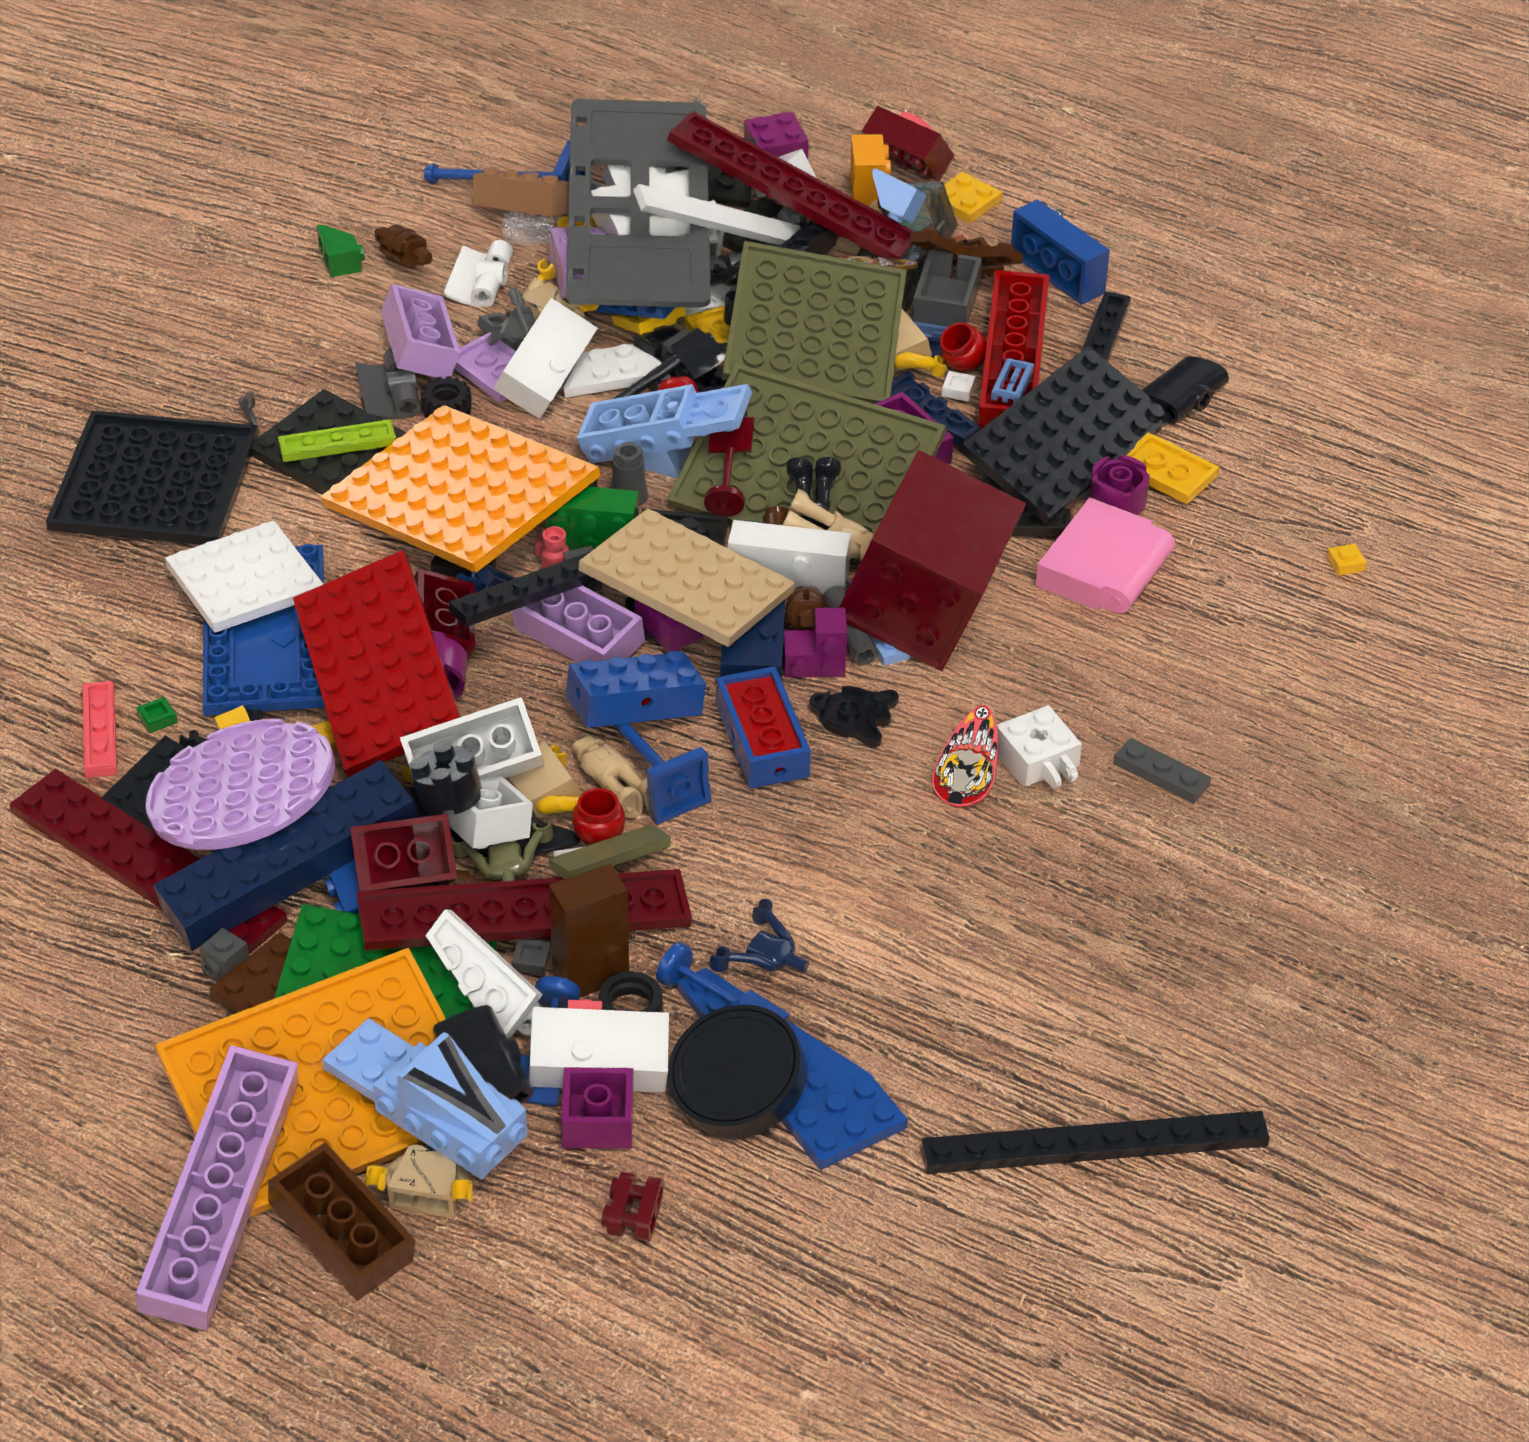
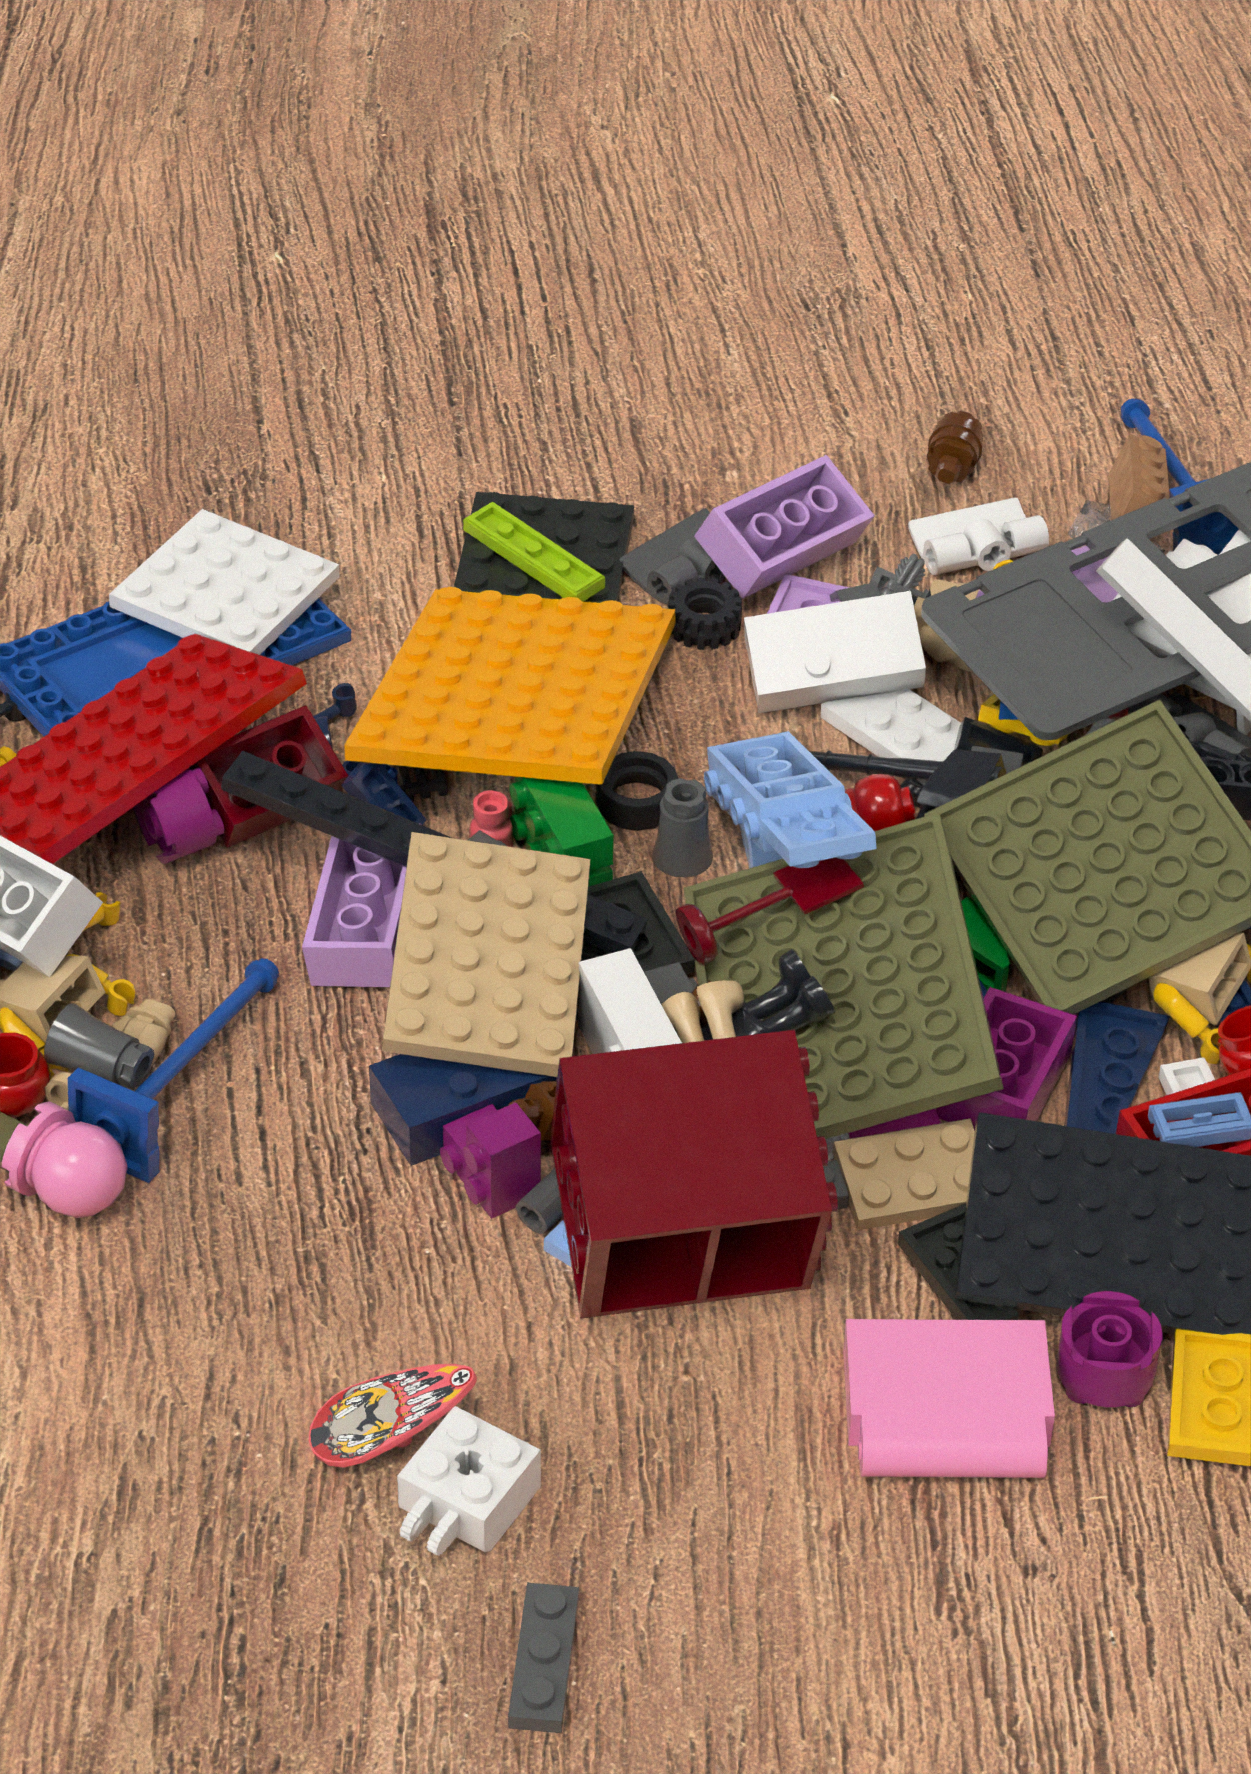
camera: 60 degrees right, 0 degrees up
(153, 478) = (358, 448): black plate -> none
(247, 404) = (544, 458): dark grey piece -> none
(339, 251) = (895, 404): green slope -> none
(617, 766) = (94, 1046): none -> dark grey plant
(635, 689) = (263, 1006): blue brick -> none
(695, 815) = (65, 1162): none -> bright pink tile
(762, 727) = (293, 1164): brick -> none
(855, 712) = (419, 1256): black tile -> none
(1346, 559) = (1210, 1712): yellow plate -> none

